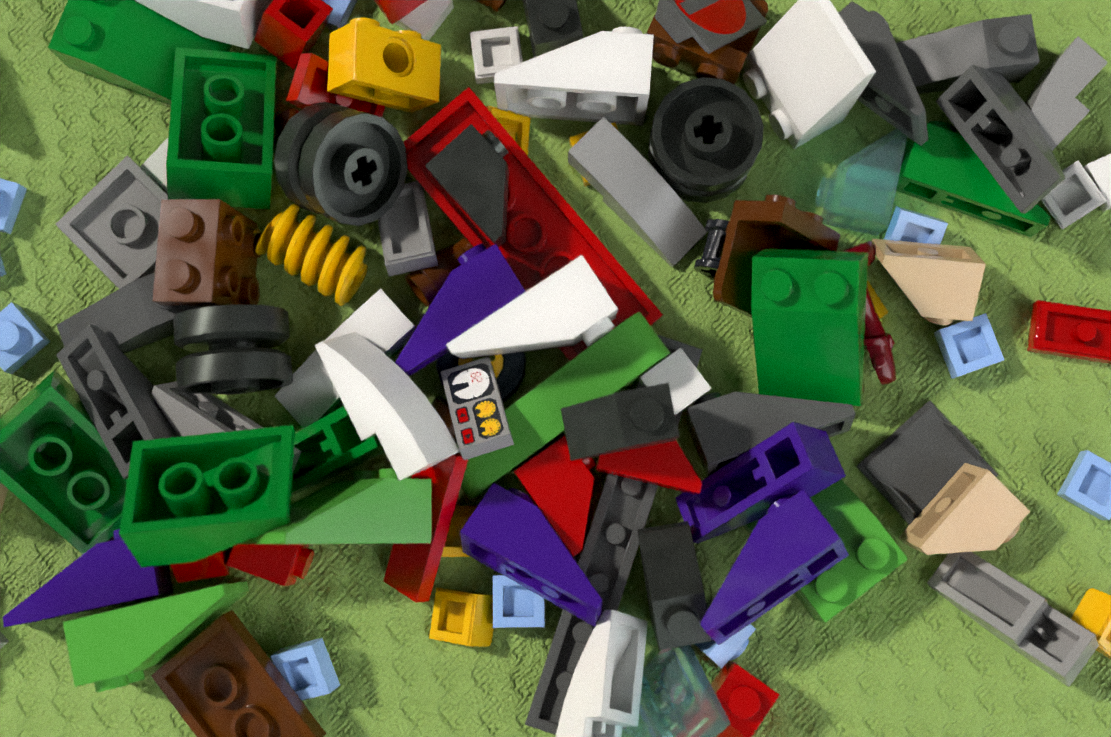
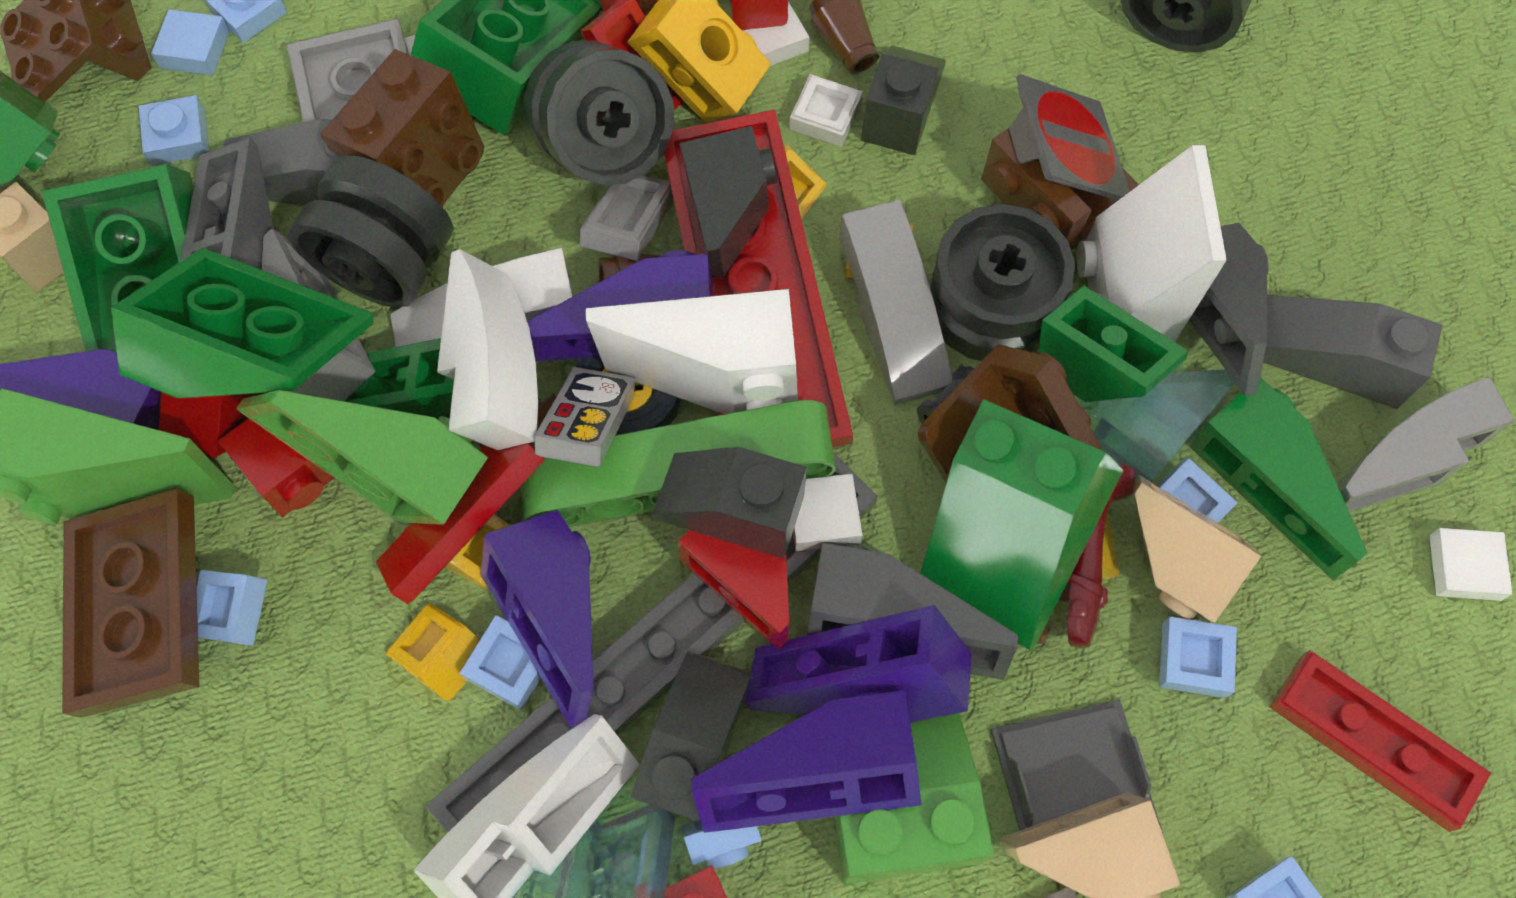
camera: 25 degrees right, 15 degrees down
(313, 254) = (519, 192): yellow piece -> none
(561, 491) = (628, 565): red slope -> none
(583, 80) = (896, 151): white slope -> none
(810, 161) = (1106, 349): none -> green slope
(1002, 135) = (1347, 427): dark grey slope -> none
(1073, 196) = (1404, 552): white tile -> none

